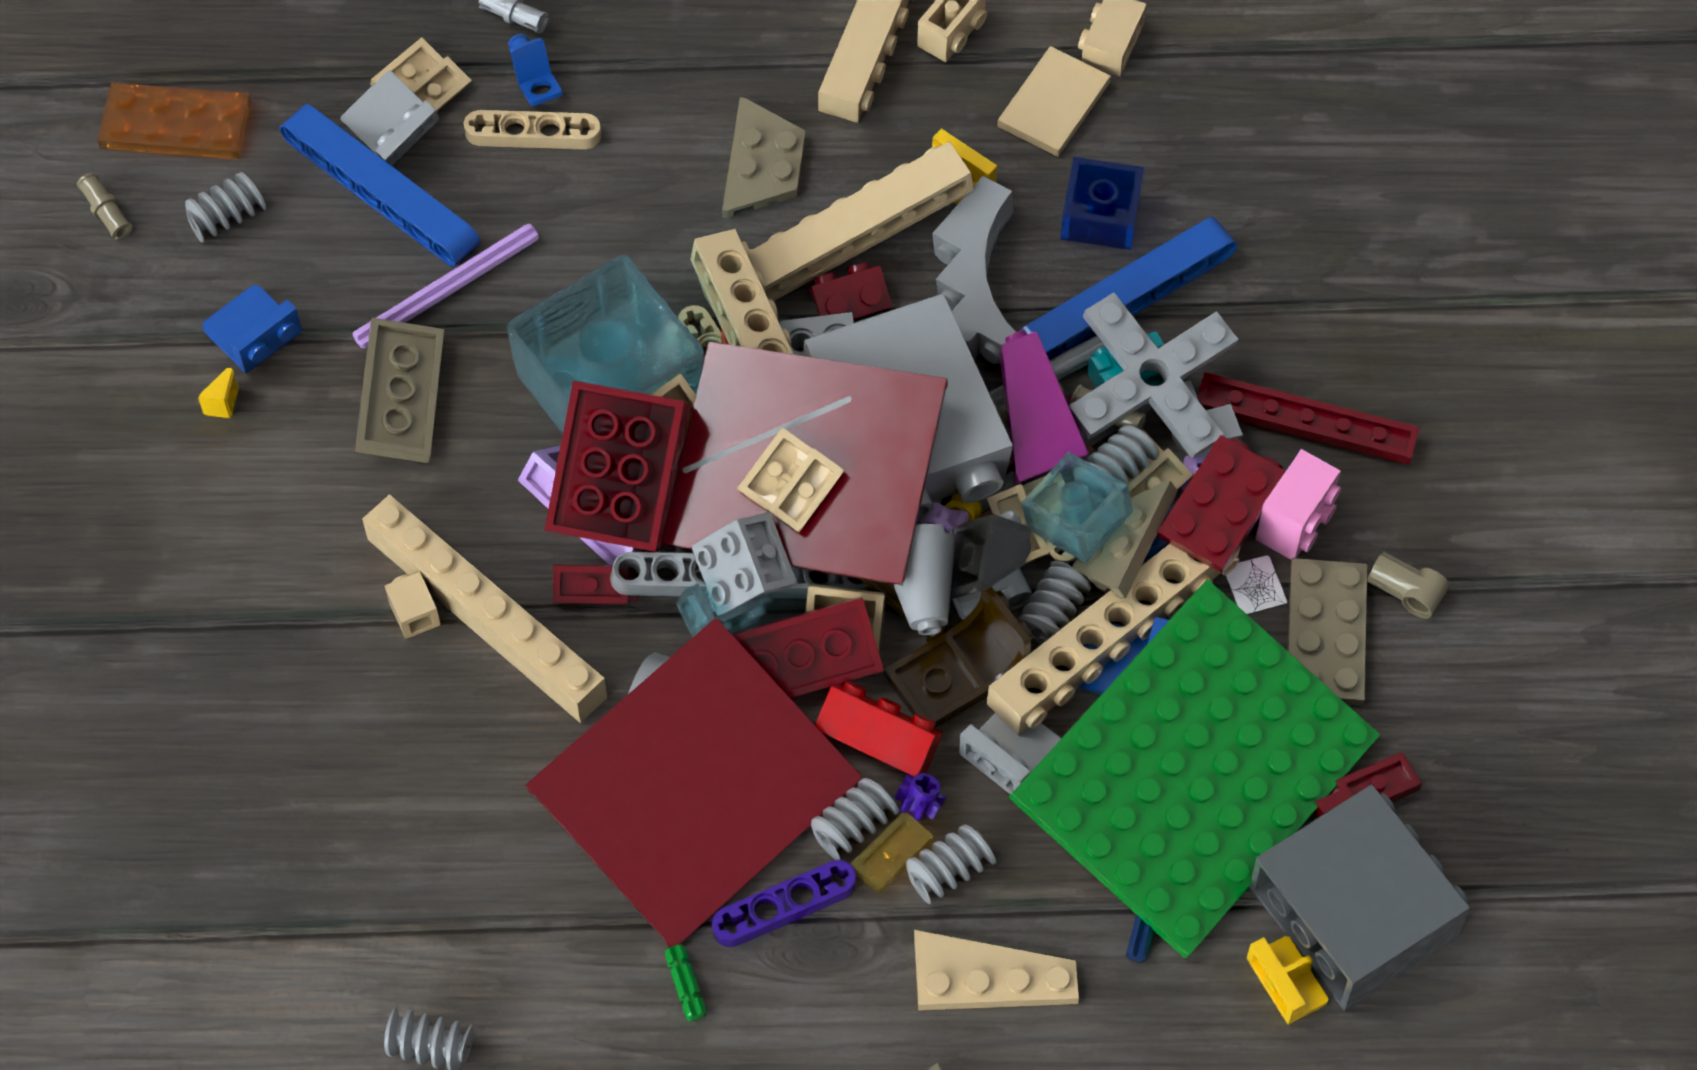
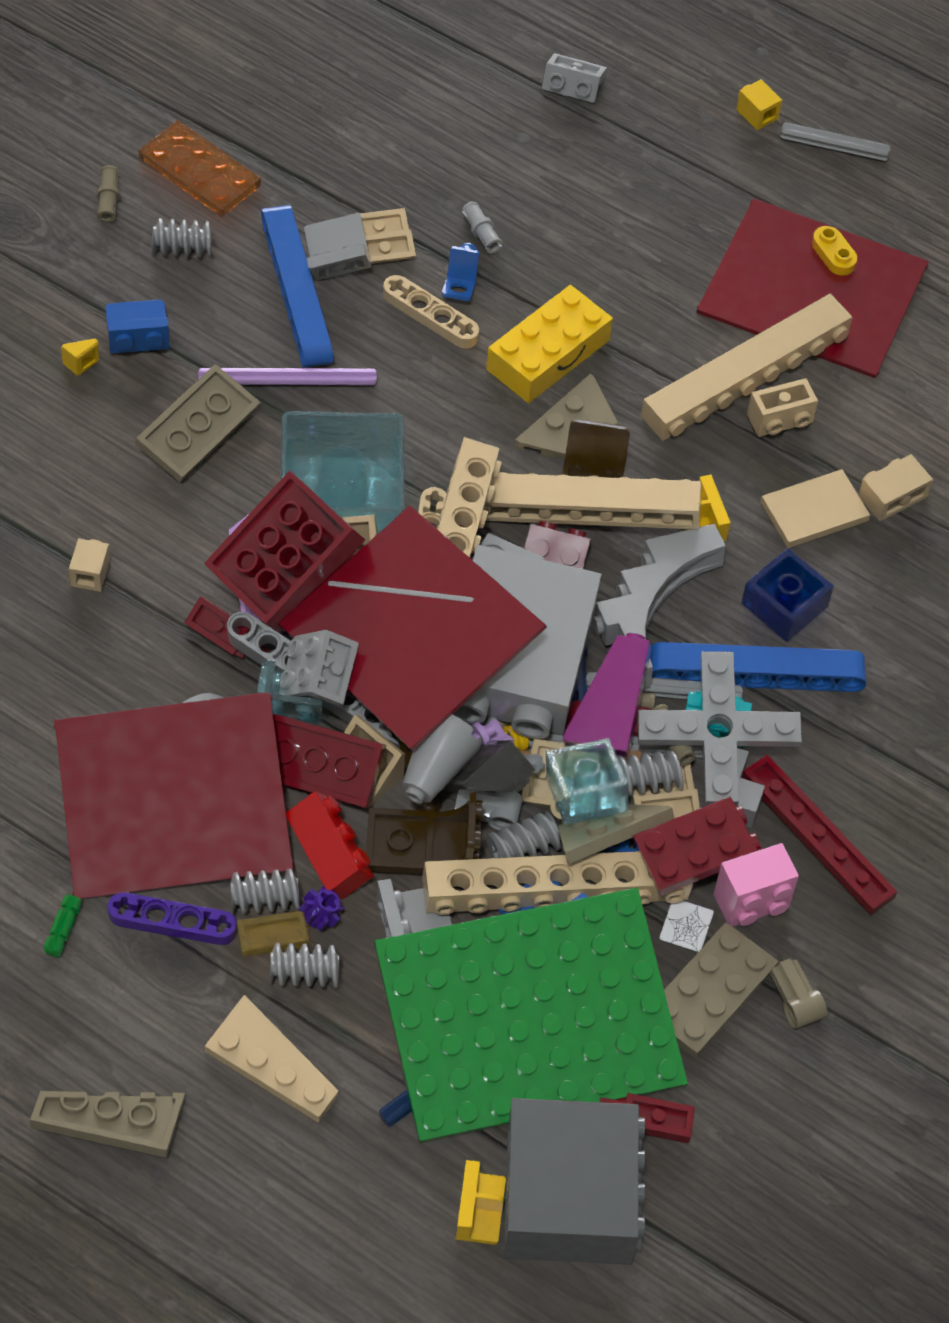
camera: 30 degrees right, 5 degrees down
(486, 609) = (134, 596): tan brick -> none
(678, 91) = (549, 343): none -> yellow brick
(790, 480) = (389, 629): tan slope -> none
(815, 175) = (596, 449): none -> dark brown bracket

